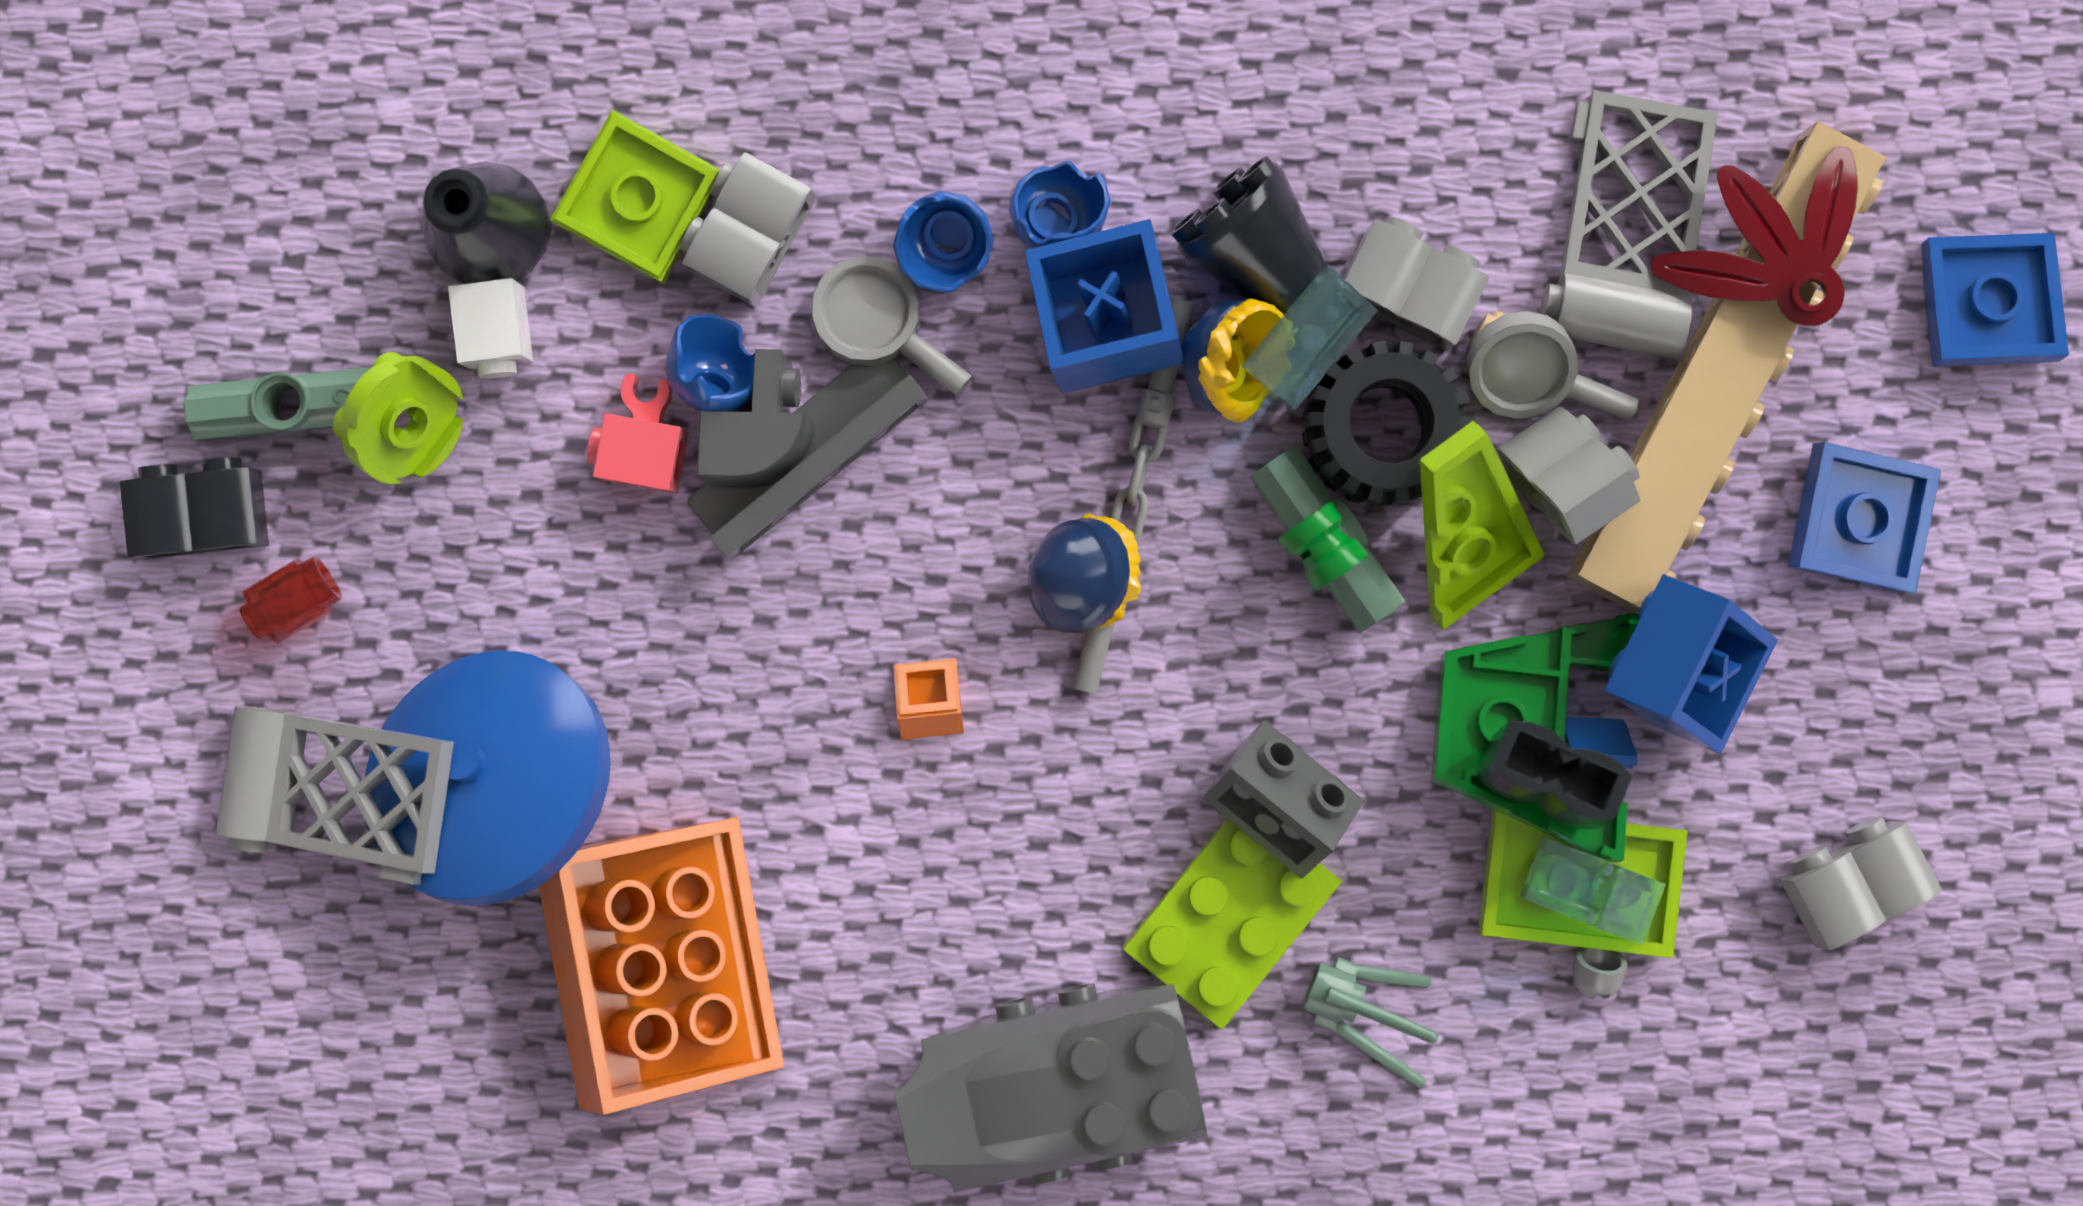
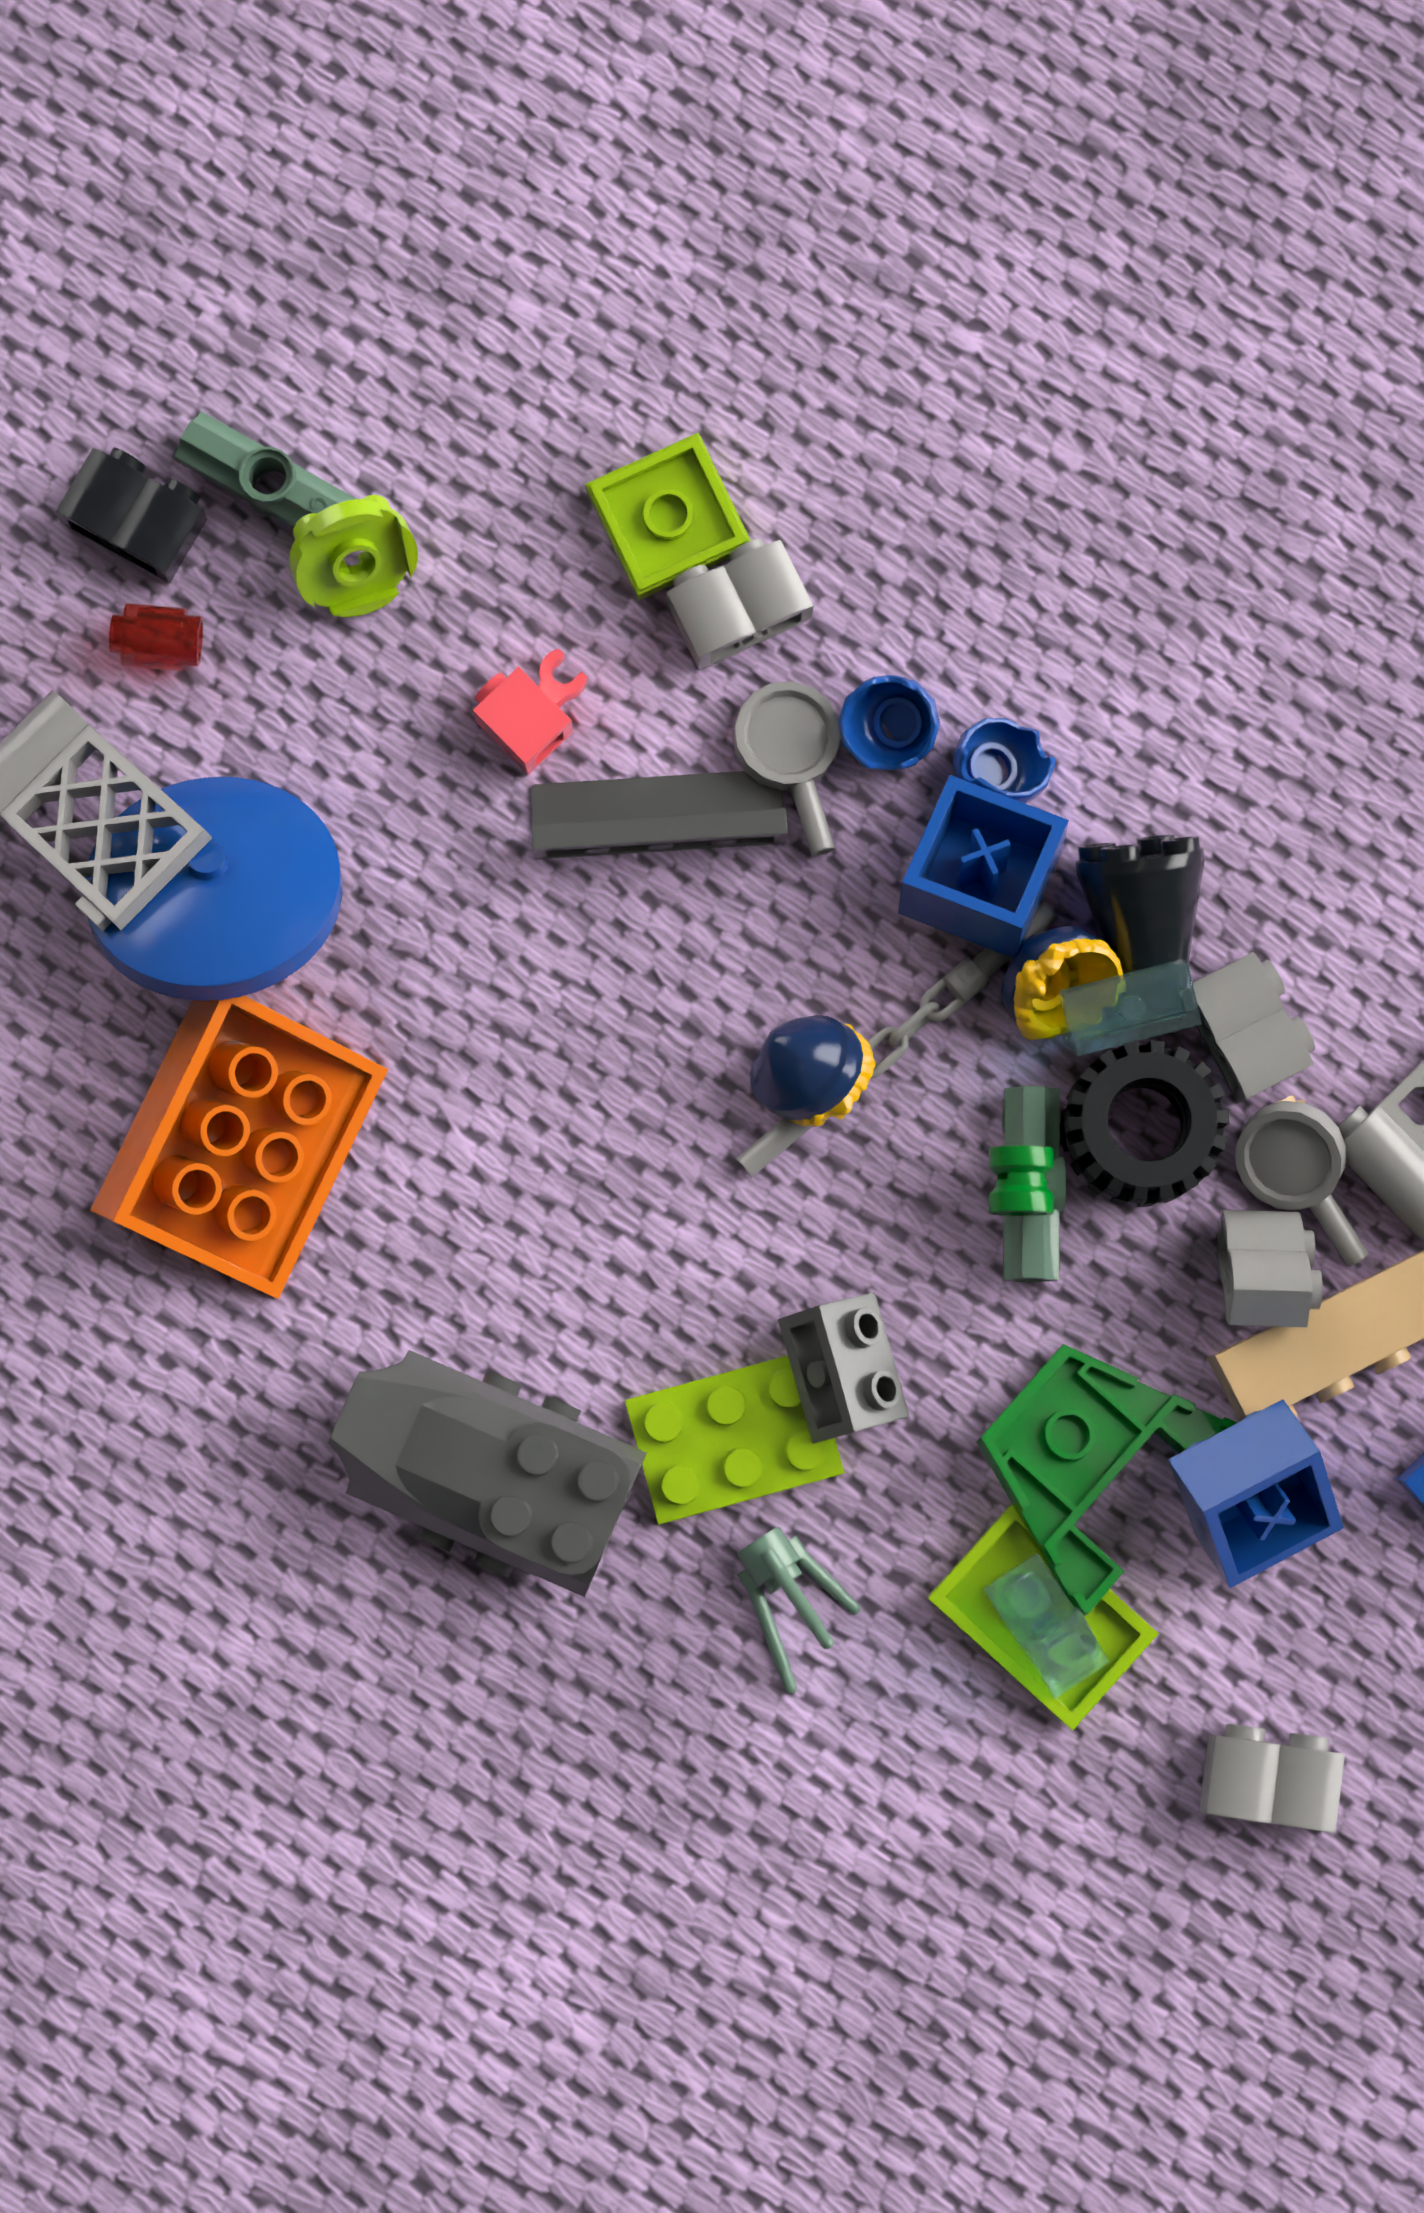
camera: 30 degrees right, 5 degrees down
(490, 326) = (476, 535): white brick -> none
(500, 225) = (530, 451): black cone -> none
(695, 360) = (619, 677): blue hair -> none
(758, 444) = (626, 780): dark grey brick -> none
(928, 699) = (611, 1084): orange slope -> none
(1471, 525) = (1156, 1253): lime wing -> none
(1568, 784) = (1084, 1509): black brick -> none
(1602, 735) = (1134, 1510): blue slope -> none
(1602, 981) = (993, 1702): light grey hinge -> none

